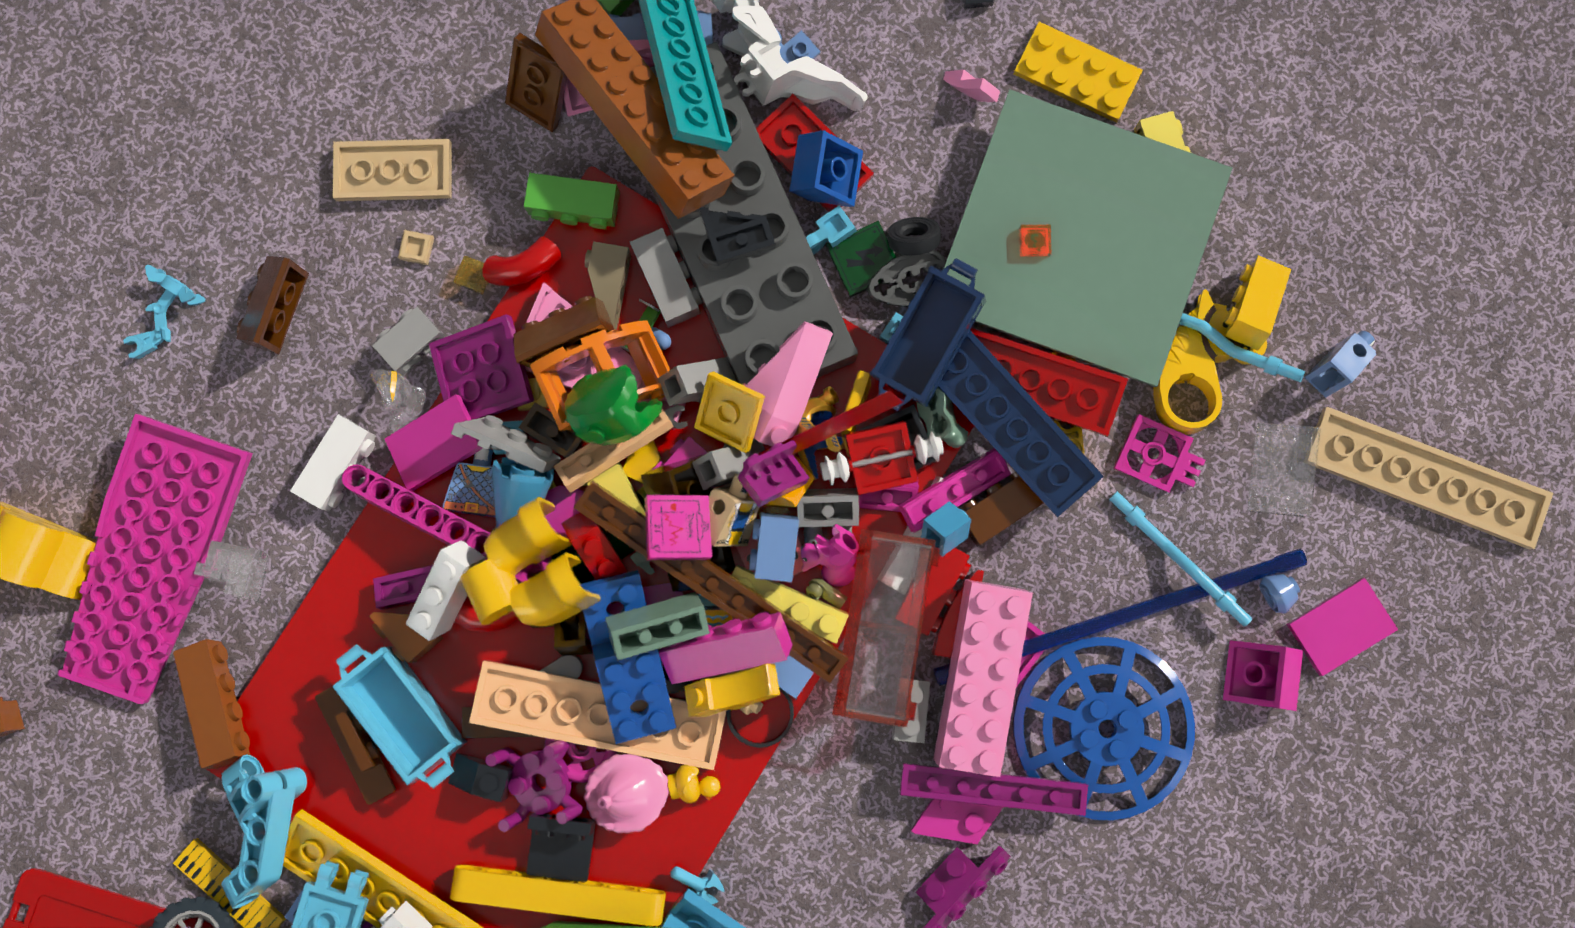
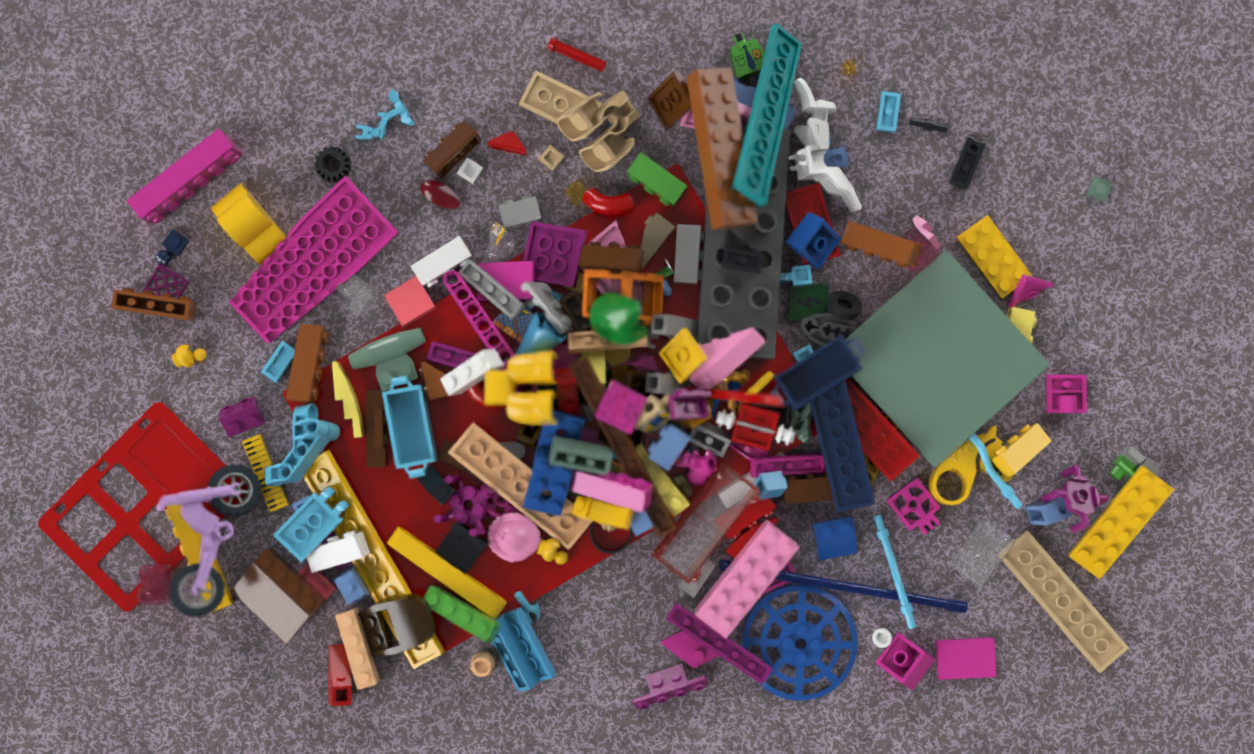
camera: 25 degrees right, 5 degrees up
(35, 786) = (186, 358): none -> yellow animal
(101, 401) = (322, 159): none -> black tyre
(155, 829) = (241, 416): none -> magenta bracket
(172, 723) = (279, 362): none -> medium azure plate
(285, 715) = (344, 391): none -> light yellow slope
(286, 373) = (440, 194): none -> dark red arm
(312, 321) = (470, 170): none -> white tile
(317, 541) = (410, 301): none -> coral tile
(323, 631) = (390, 356): none -> sand green plate
(345, 258) = (509, 143): none -> red slope
(379, 95) = (576, 54): none -> red axle
(419, 463) = (491, 289): none -> light grey tile
(429, 160) = (587, 116): none -> tan piece
(920, 125) = (881, 243): none -> dark orange brick
(972, 111) = (928, 252): none -> clear pink slope
(1035, 240) = (911, 347): clear orange tile -> none
(1073, 555) = (835, 537): none -> blue slope
(1145, 89) = (1027, 289): none -> dark pink tile
(1213, 660) = (882, 637): none -> white tile
(1273, 199) = (1066, 394): none -> dark pink plate
(1279, 592) = (941, 620): medium blue cone -> none
(1358, 320) = (1071, 496): none -> magenta plate
(1419, 247) = (1129, 462): none -> hips
(1444, 328) = (1120, 522): none -> yellow plate

